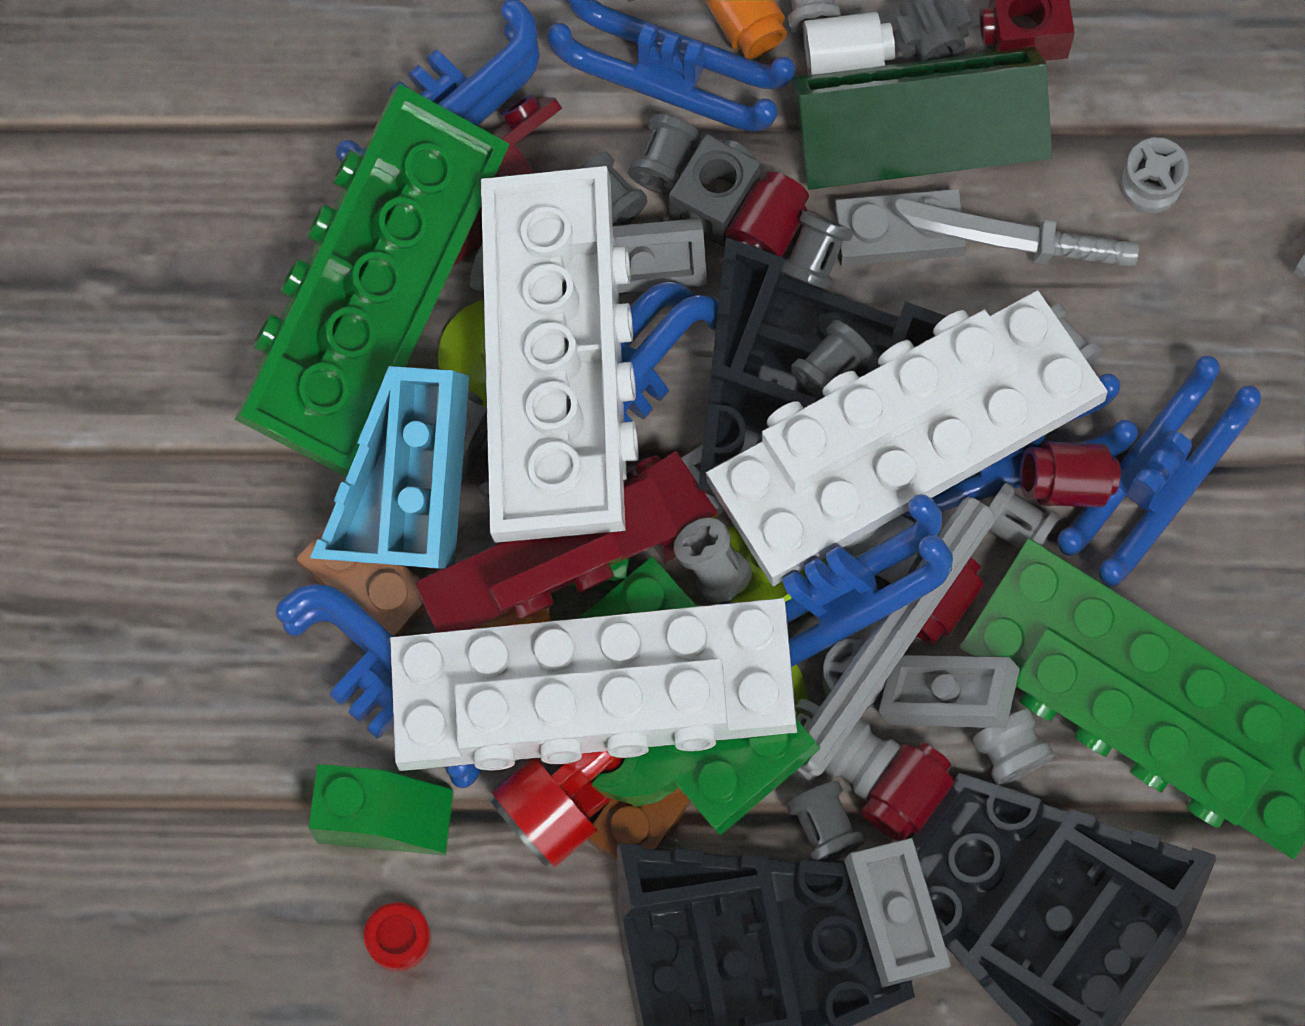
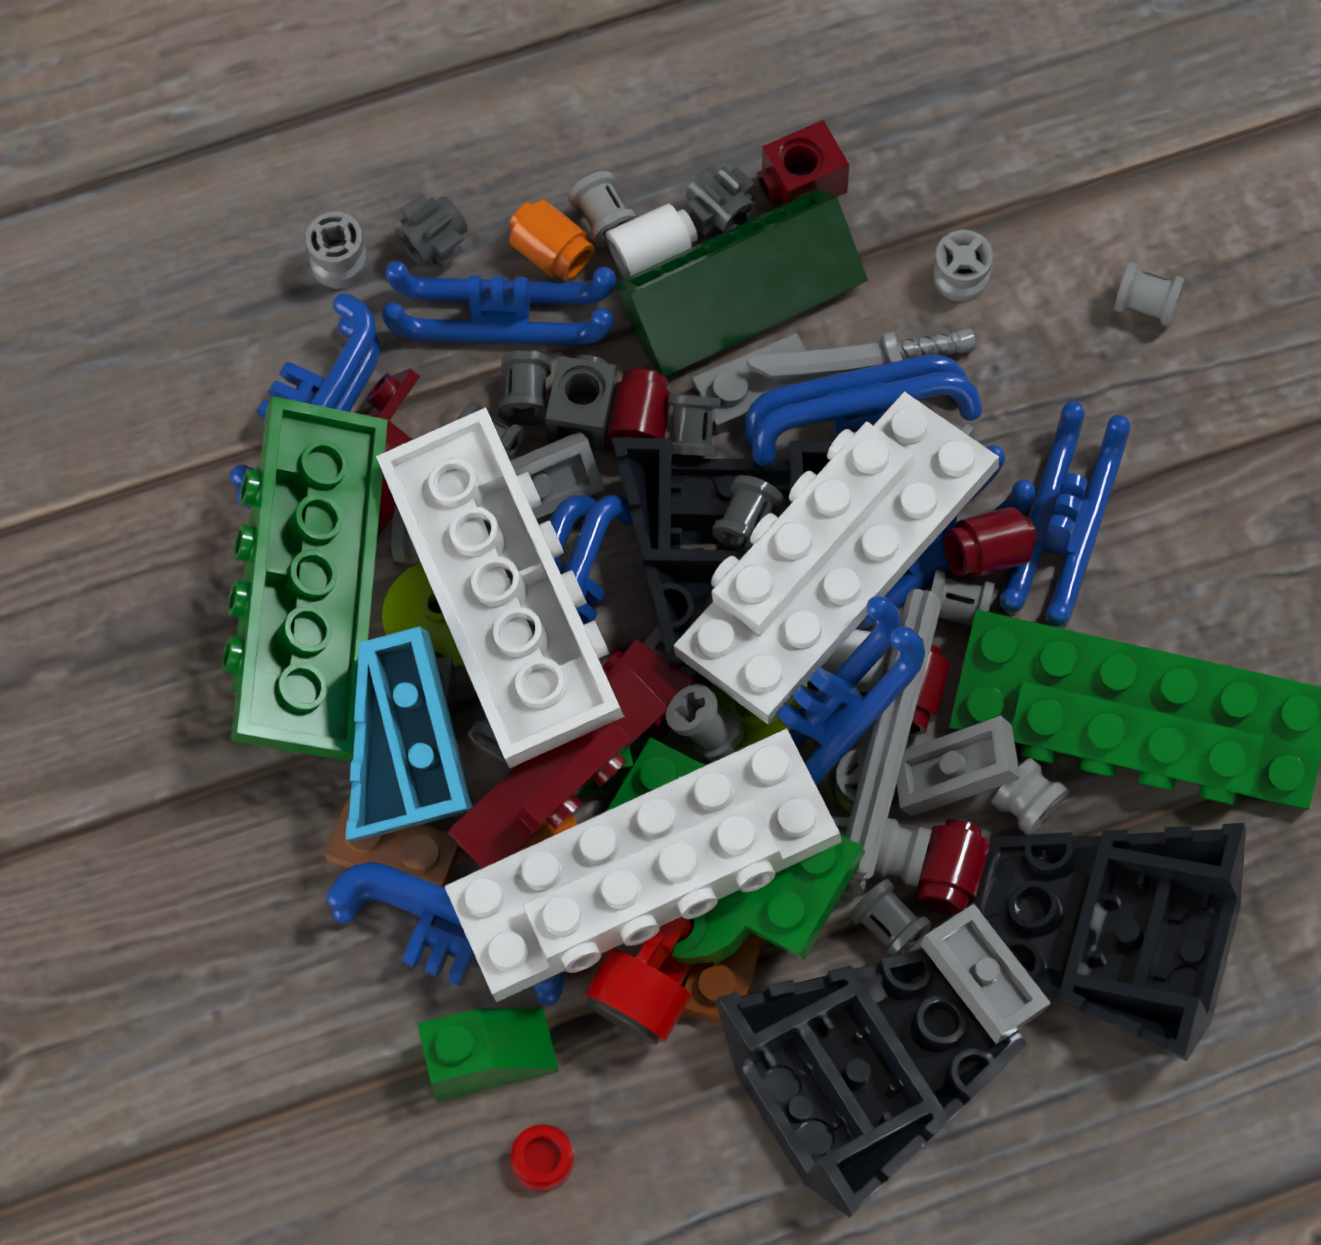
camera: 20 degrees left, 5 degrees down
(992, 279) = (855, 398): none -> blue piece

